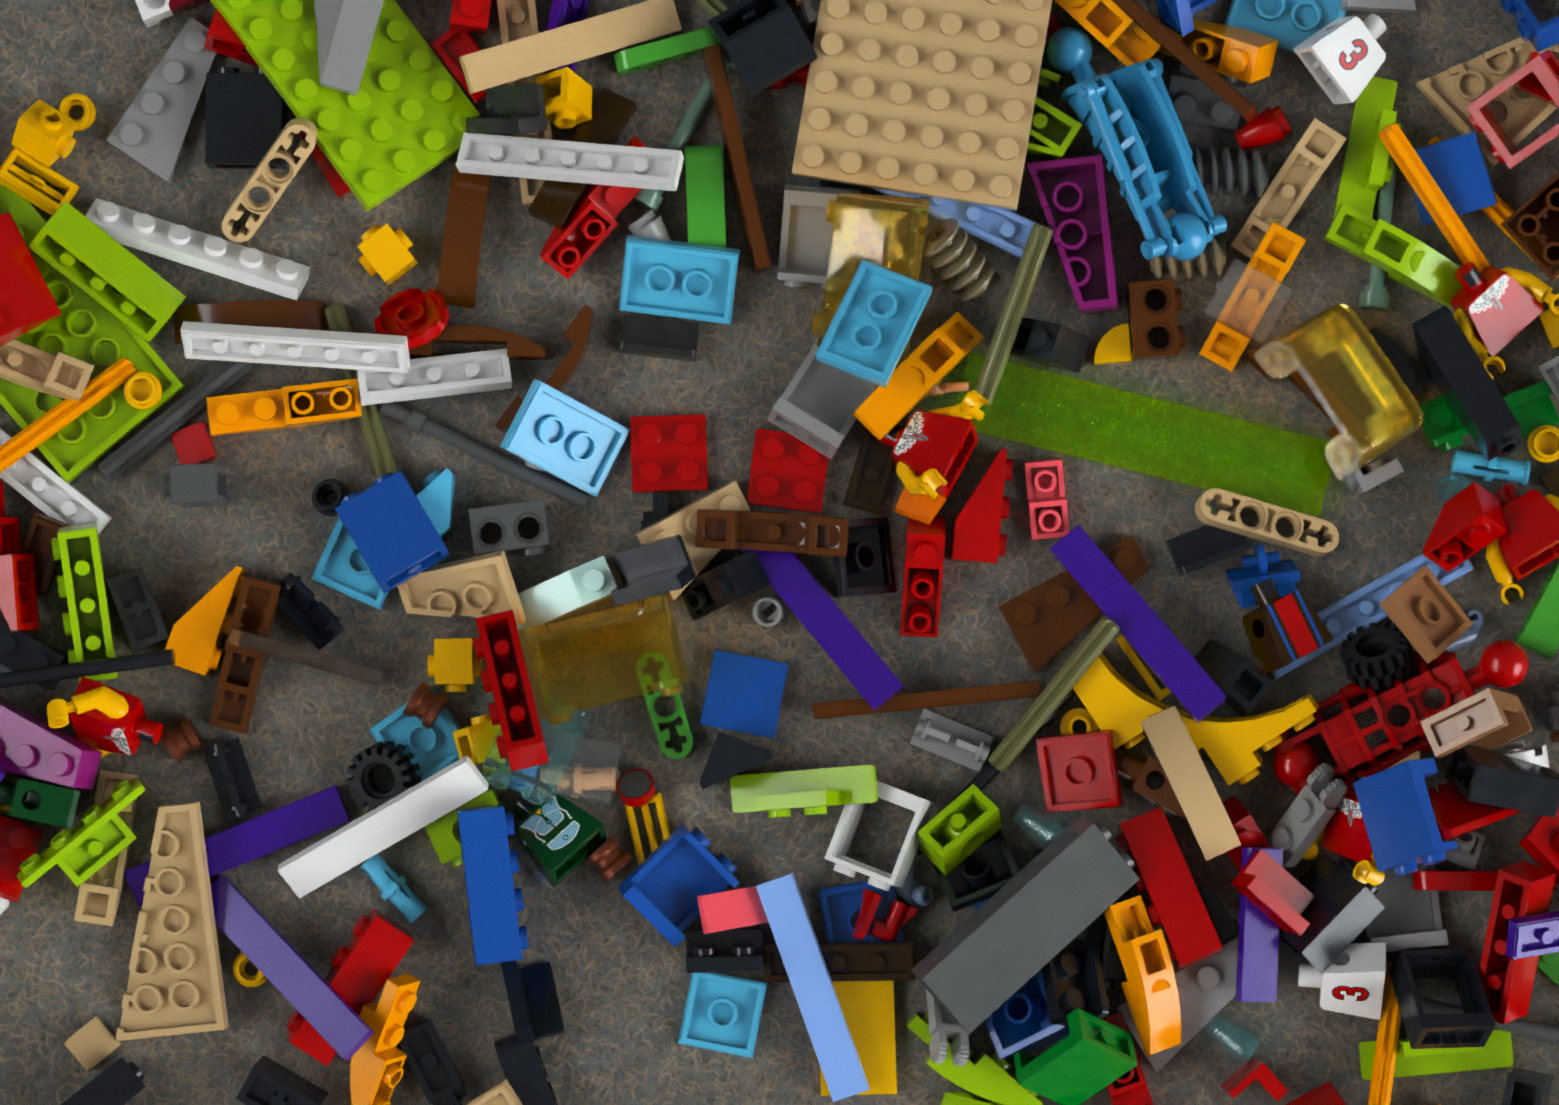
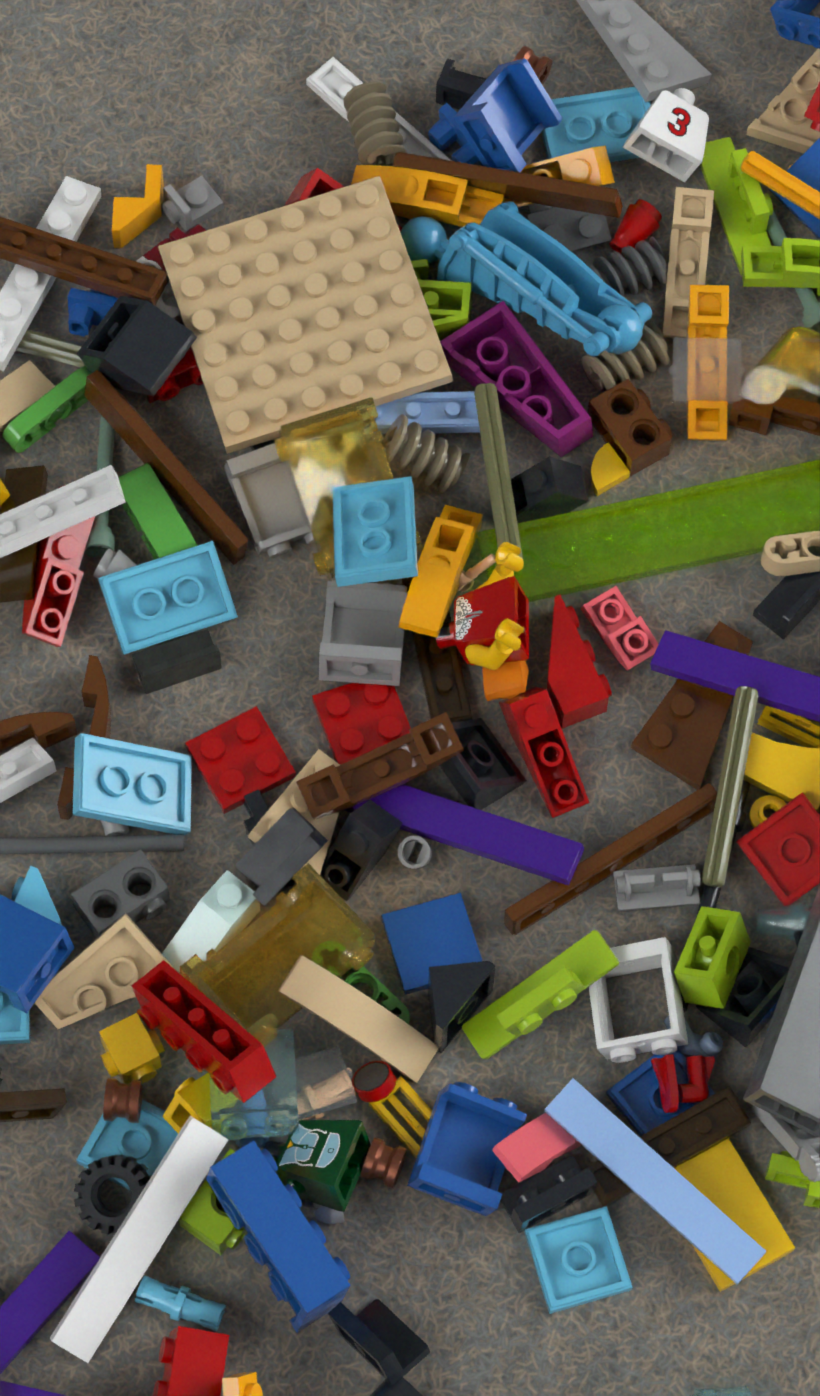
camera: 30 degrees left, 20 degrees down
(644, 736) = (359, 1018): none -> tan slope

